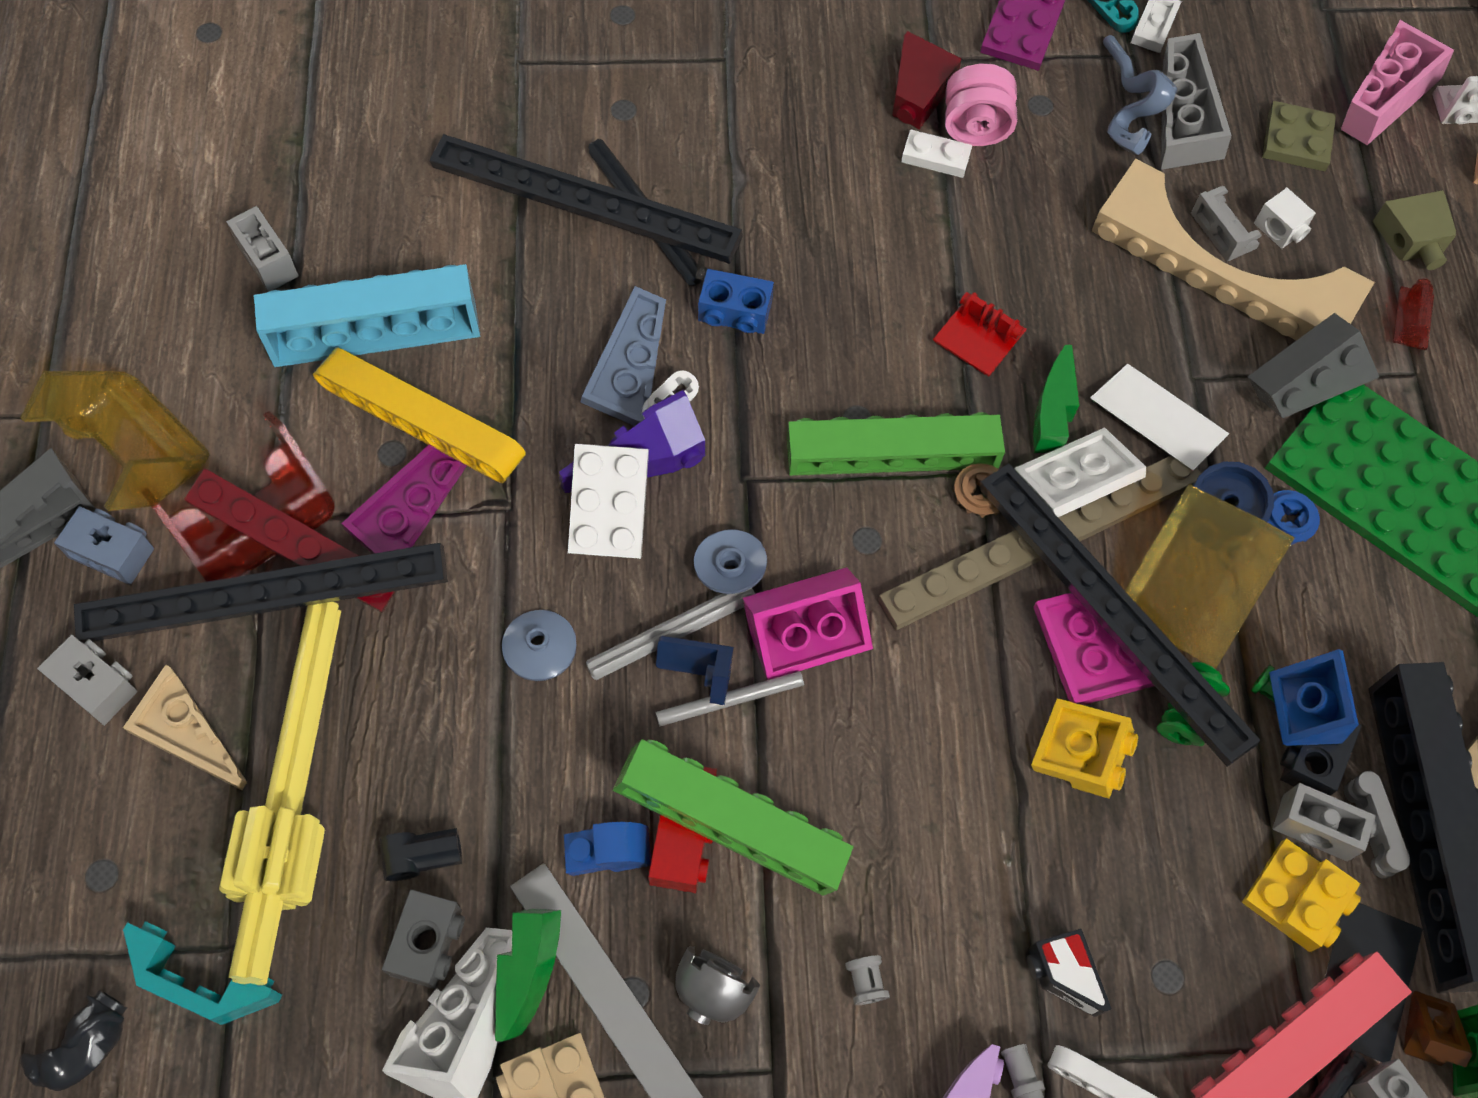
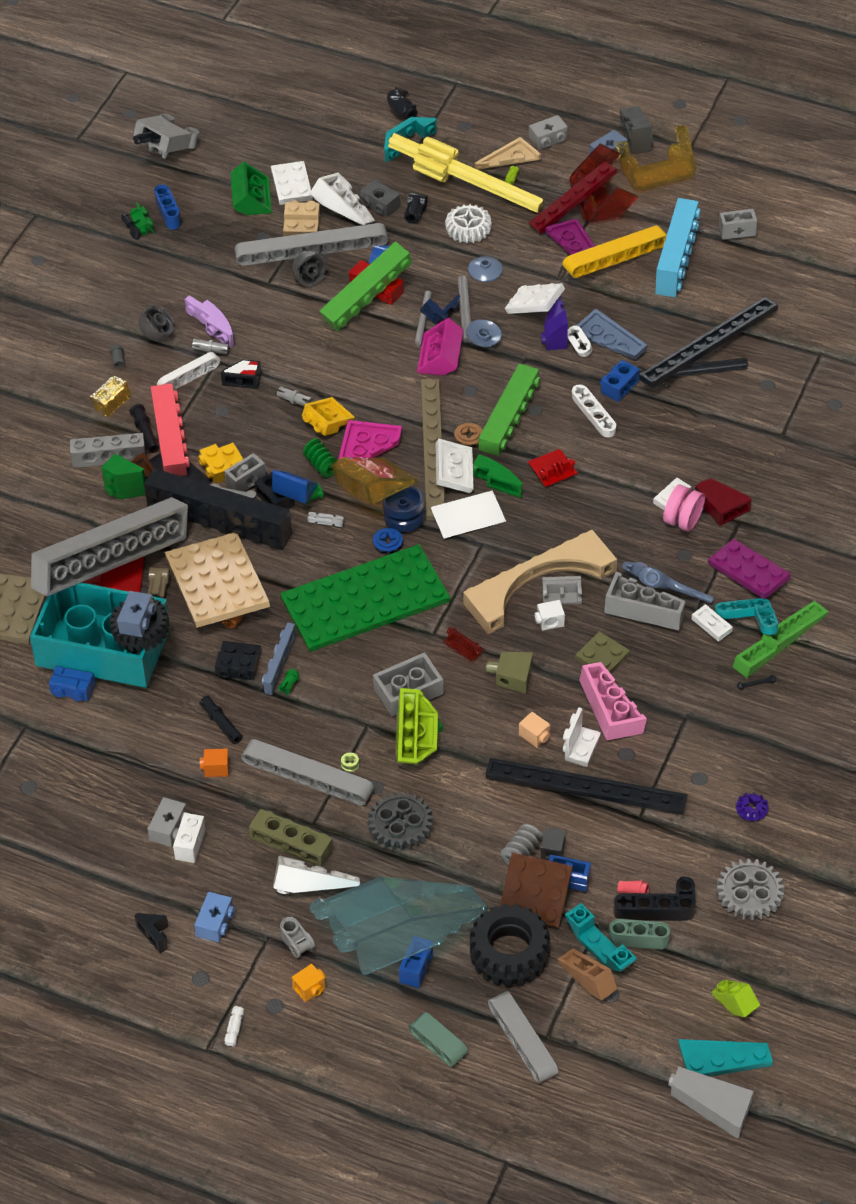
camera: 120 degrees right, 15 degrees down
(253, 701) = (511, 175): none -> lime axle
(260, 593) = (552, 182): black plate -> none
(418, 723) = (468, 223): none -> white gear
(525, 970) = (348, 215): green slope -> none
(822, 324) = (590, 412): none -> white beam
(867, 980) = (281, 315): light grey bush -> none
(1067, 838) = (294, 396): none -> light grey pin
(1120, 616) = (377, 437): black plate -> none
(1306, 632) = (325, 519): none -> light grey axle
(1315, 368) = (452, 573): dark grey wedge -> none

